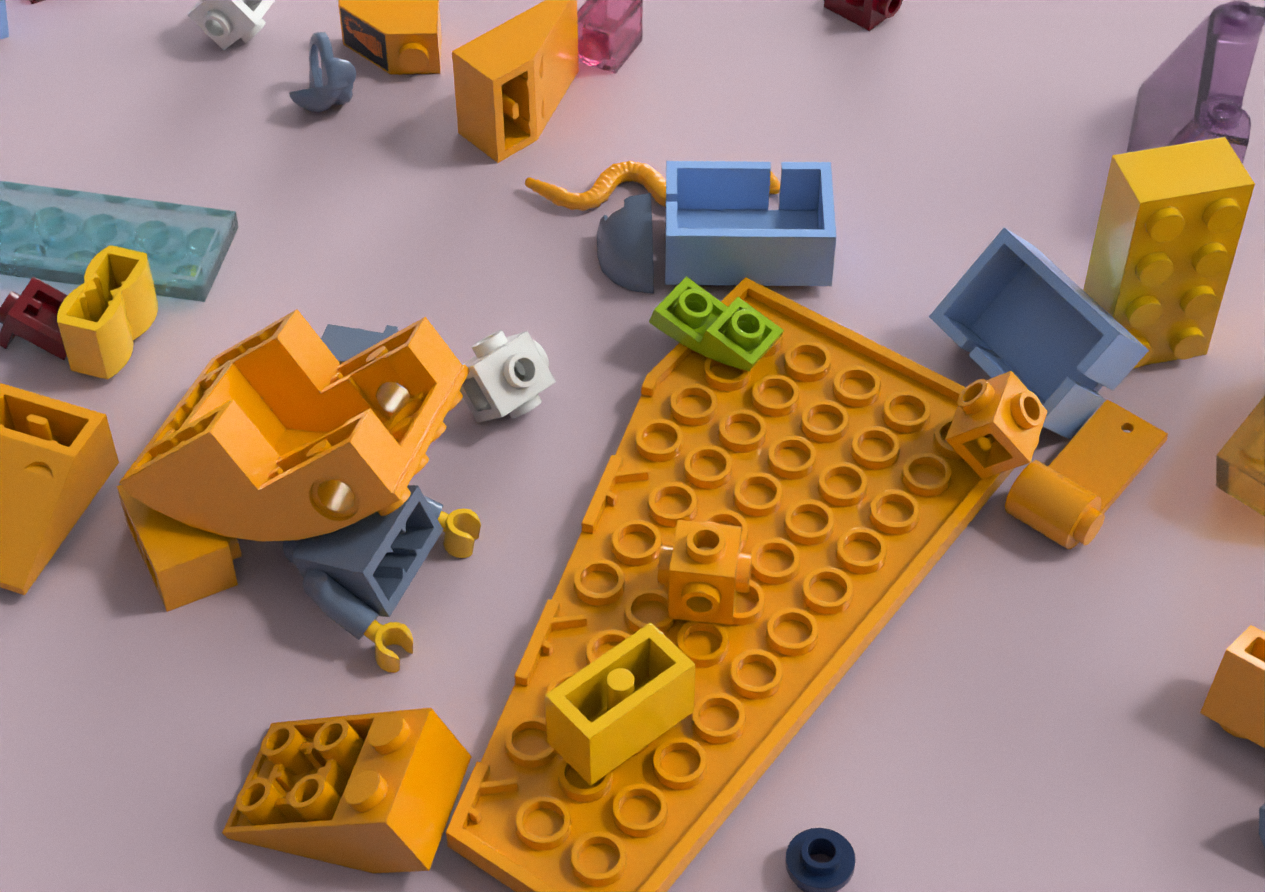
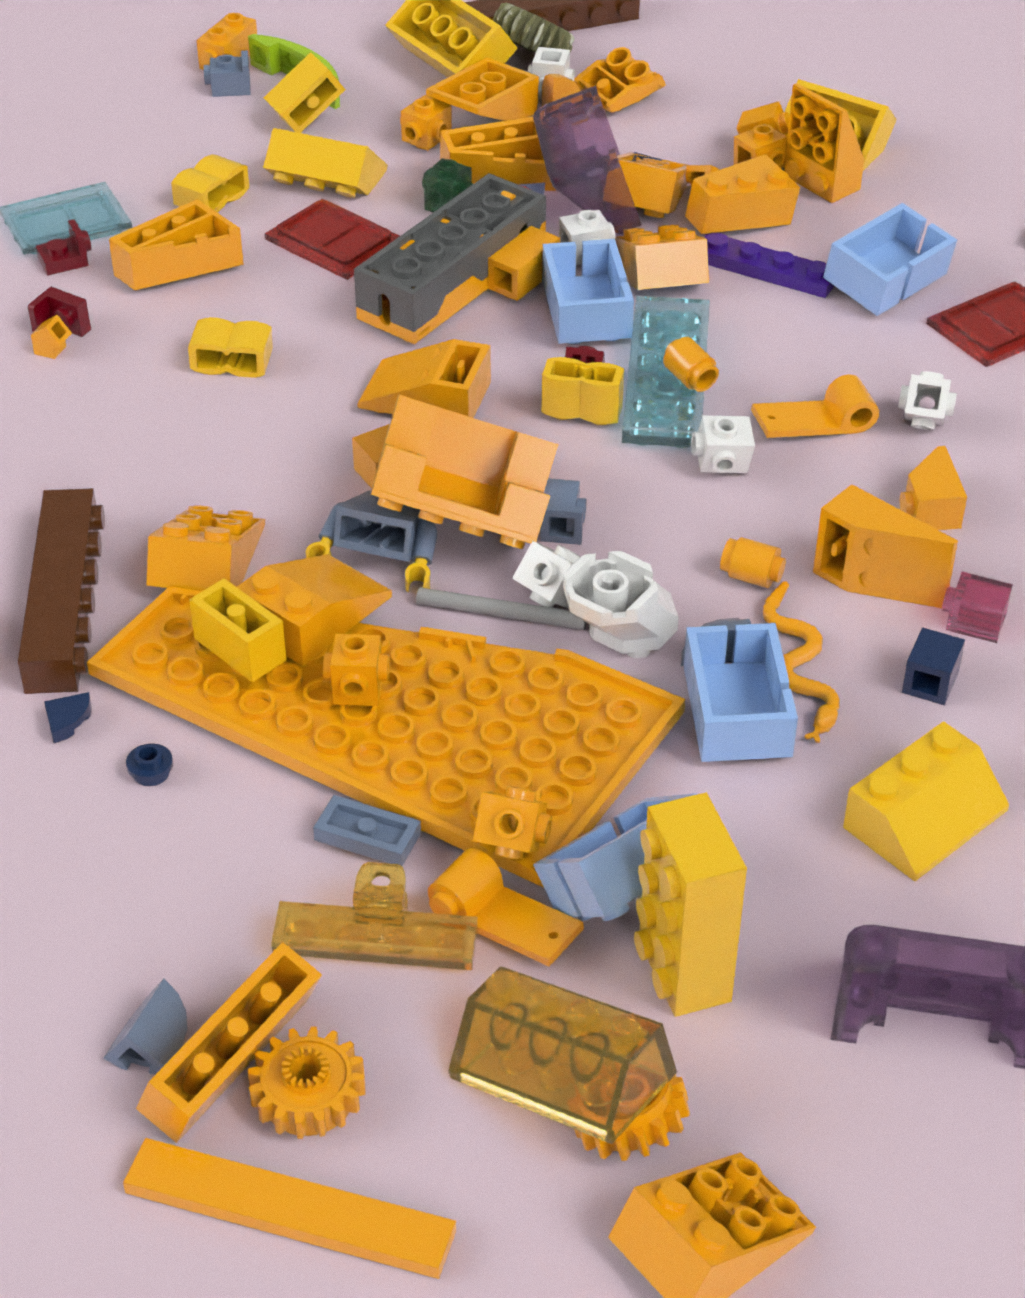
camera: 85 degrees right, 5 degrees down
(101, 191) = (691, 364): none -> light orange brick
(206, 105) = (844, 410): none -> light orange door
(267, 188) = (723, 444): none -> white brick
(327, 84) = (870, 469): sand blue piece -> none
(496, 196) = (752, 562): none -> light orange brick
(528, 454) = (499, 608): none -> light grey bar
(534, 623) = (314, 601): none -> light orange slope
(600, 297) = (621, 603): none -> white brick
(699, 77) = (933, 666): none -> dark blue brick
(724, 333) = (617, 676): lime slope -> none
(902, 119) = (925, 801): none -> yellow slope
(957, 603) = (367, 830): none -> sand blue plate
(1127, 593) = (377, 927): none -> clear yellow plate

